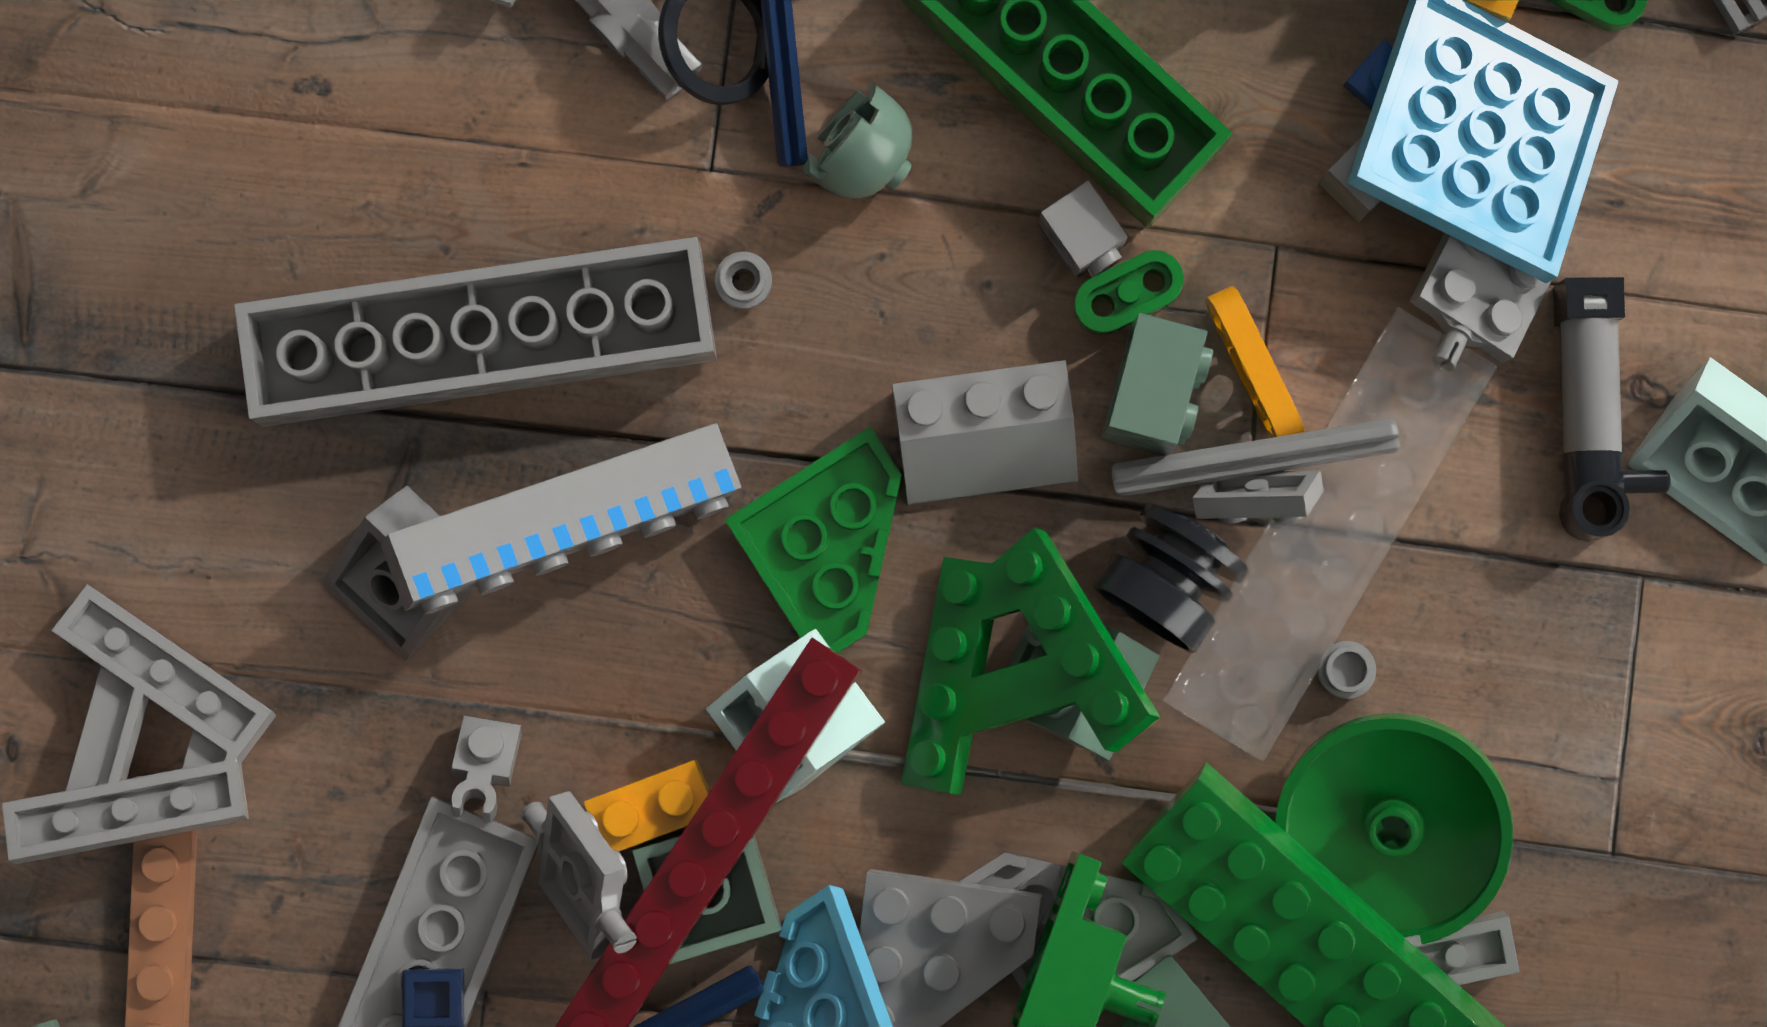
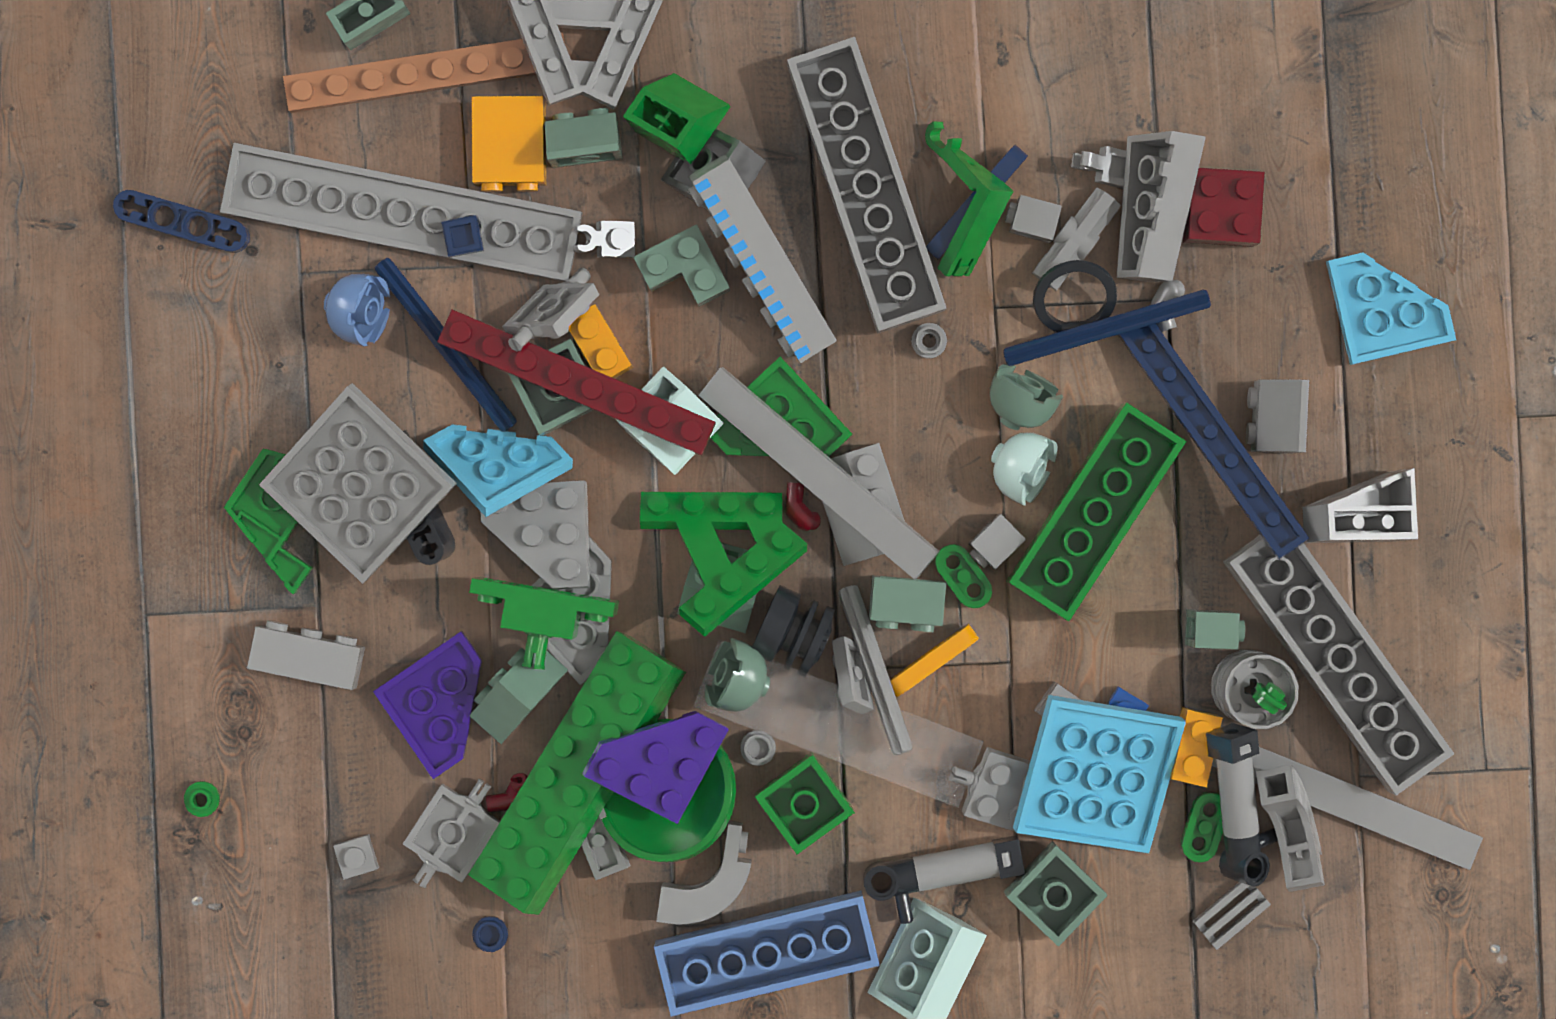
camera: 80 degrees right, 5 degrees up
(296, 895) = (508, 142): none -> light orange brick
(307, 616) = (676, 116): none -> green slope
(313, 773) = (583, 139): none -> sand green slope
(535, 641) = (686, 257): none -> sand green brick
(536, 164) = (1003, 171): none -> dark blue beam
(557, 154) = (983, 210): none -> green hinge
(581, 80) = (1033, 218): none -> light grey brick
(924, 488) = (819, 473): none -> light grey tile
(969, 166) = (1022, 465): none -> light aqua cylinder
(977, 537) = (798, 511): none -> dark red arm
(1230, 679) = (738, 677): none -> sand green cylinder
(1350, 831) = (658, 762): none -> dark purple plate
(1451, 609) = (804, 803): none -> green brick
(1580, 798) = (705, 900): none -> light grey arch
(1661, 235) = (1055, 893): none -> sand green brick
(1684, 714) = (766, 953): none -> medium blue brick

